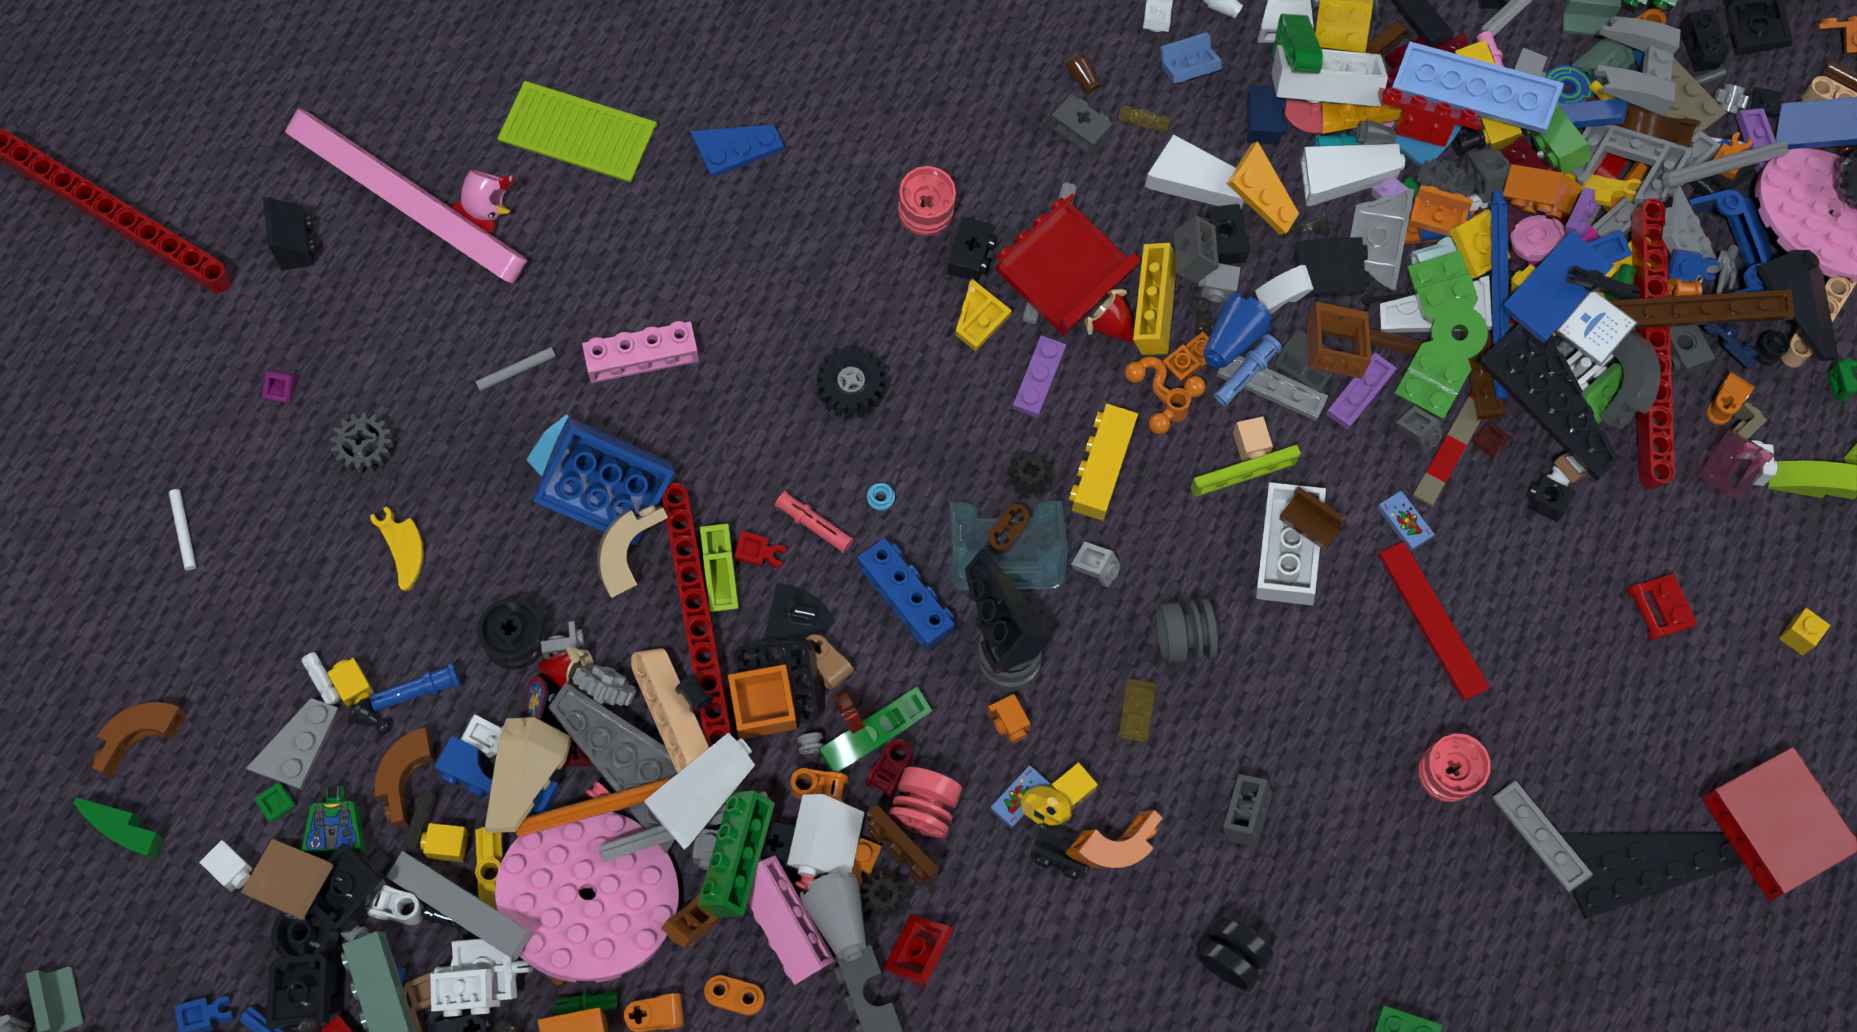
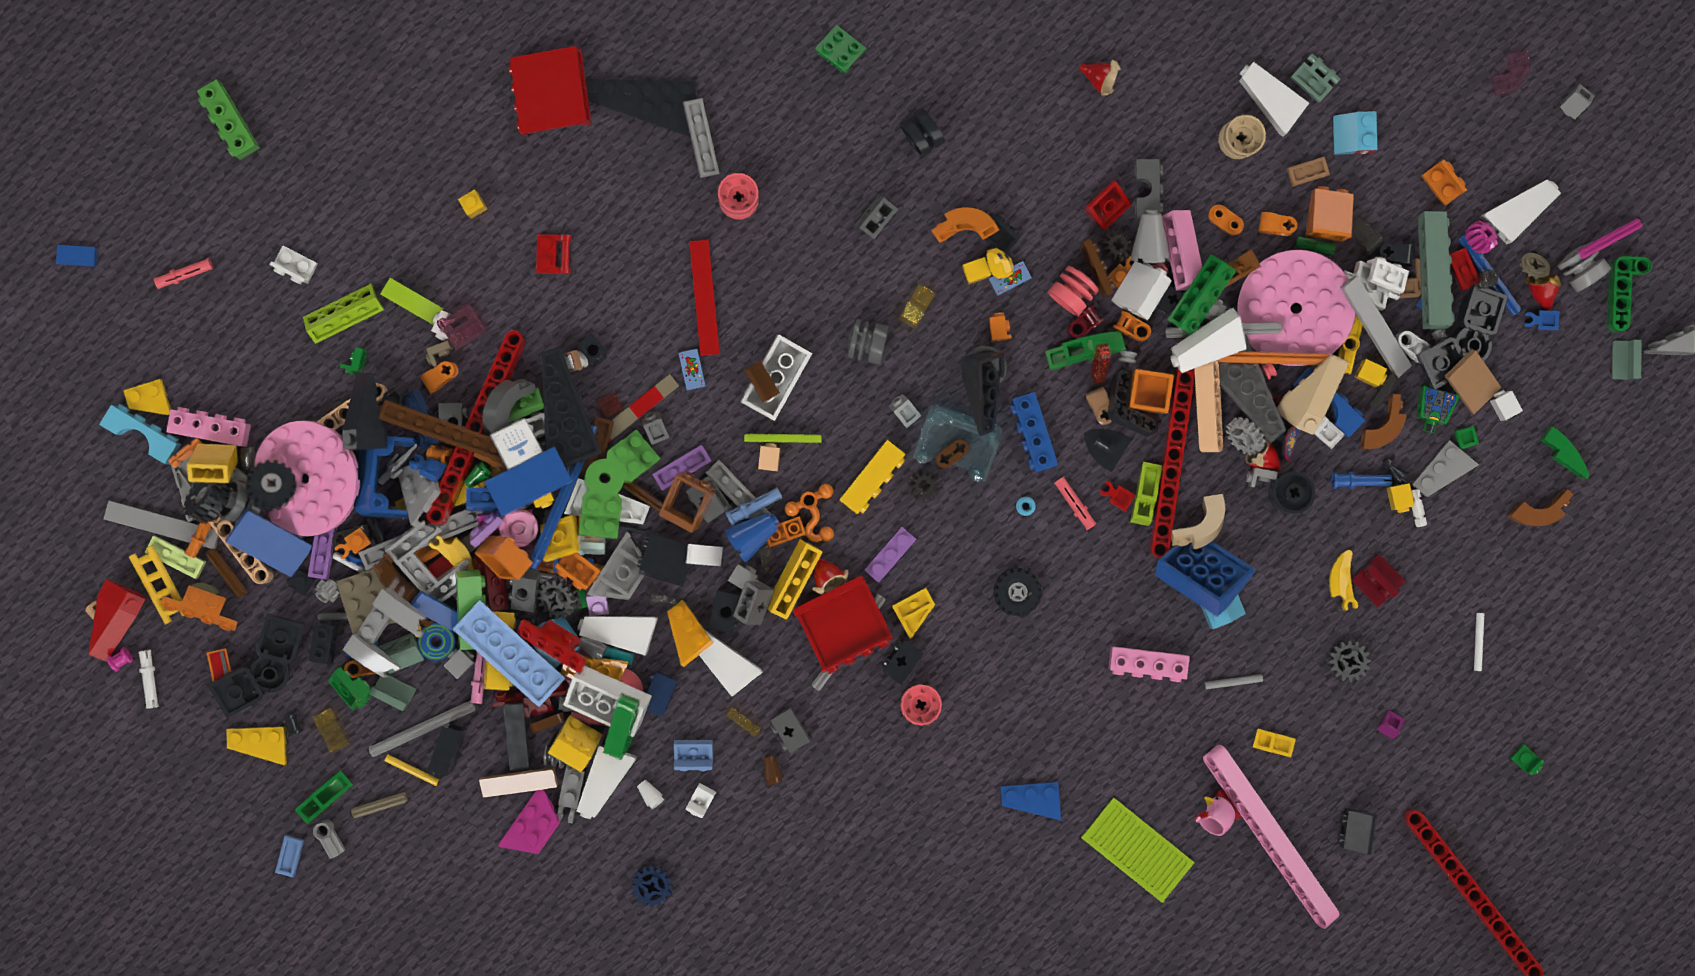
camera: 155 degrees left, 20 degrees up
(73, 398) = (1527, 760): none -> green bracket
(349, 561) = (1378, 581): none -> dark red bracket
(435, 312) = (1274, 743): none -> yellow slope
(694, 693) = (1193, 408): black bush -> none
(1596, 281) = (506, 472): black pin -> none
(1725, 164) = (366, 533): light grey axle -> none

